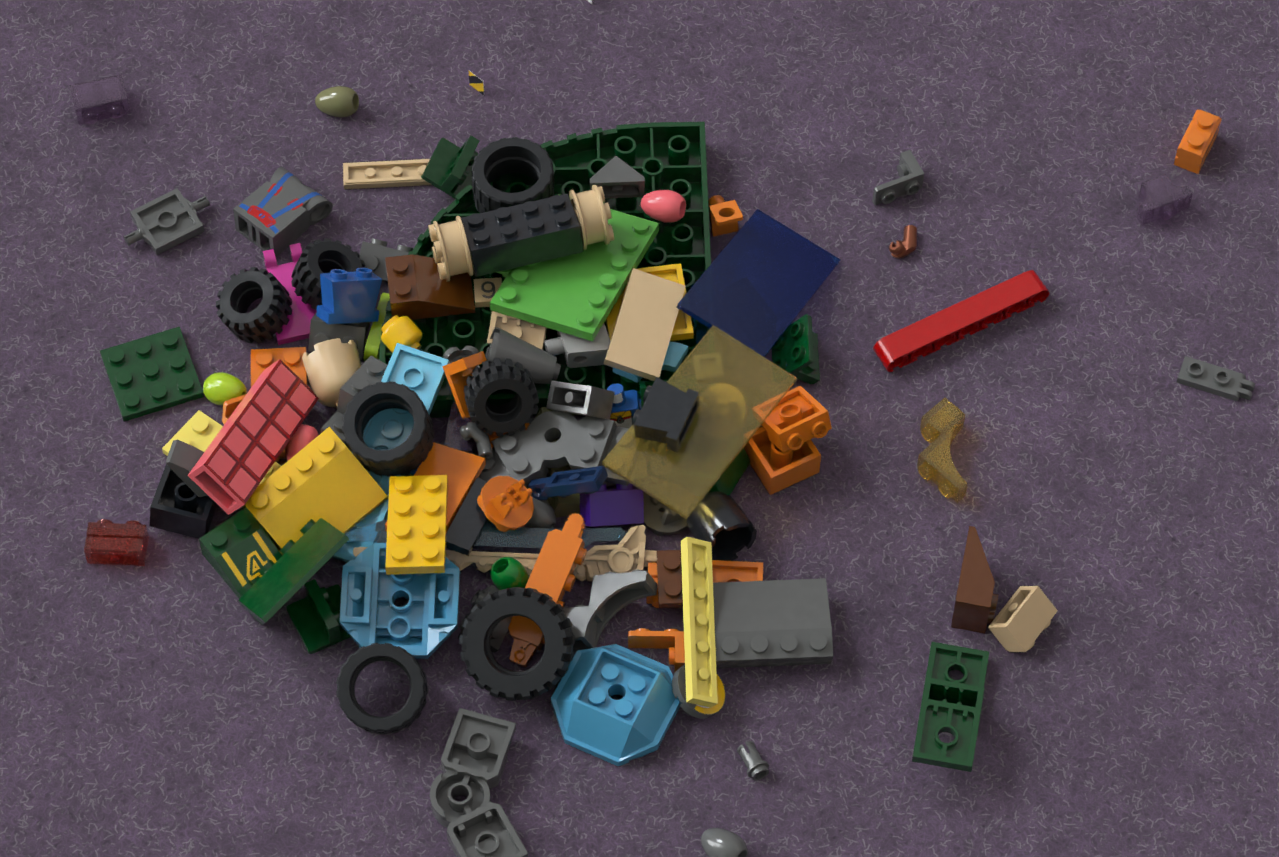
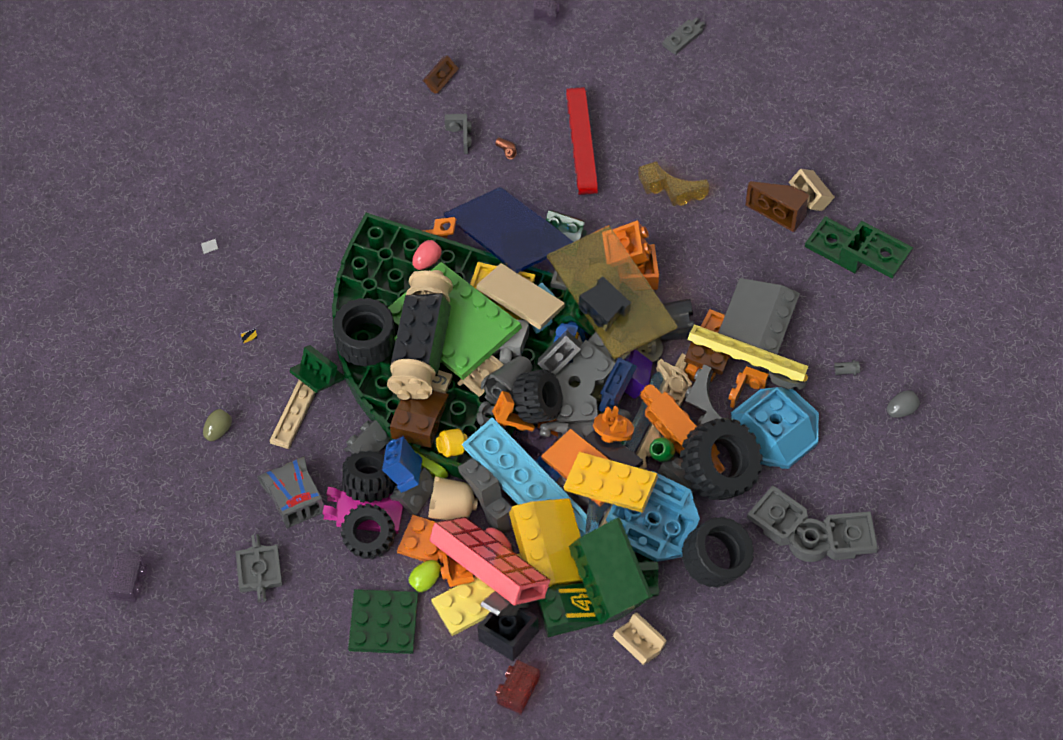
camera: 65 degrees left, 0 degrees up
(232, 651) = (640, 639): none -> tan bracket
(374, 400) = (534, 448): black tyre -> none
(619, 180) = (391, 273): dark grey slope -> none
(980, 124) = (440, 74): none -> reddish brown plate

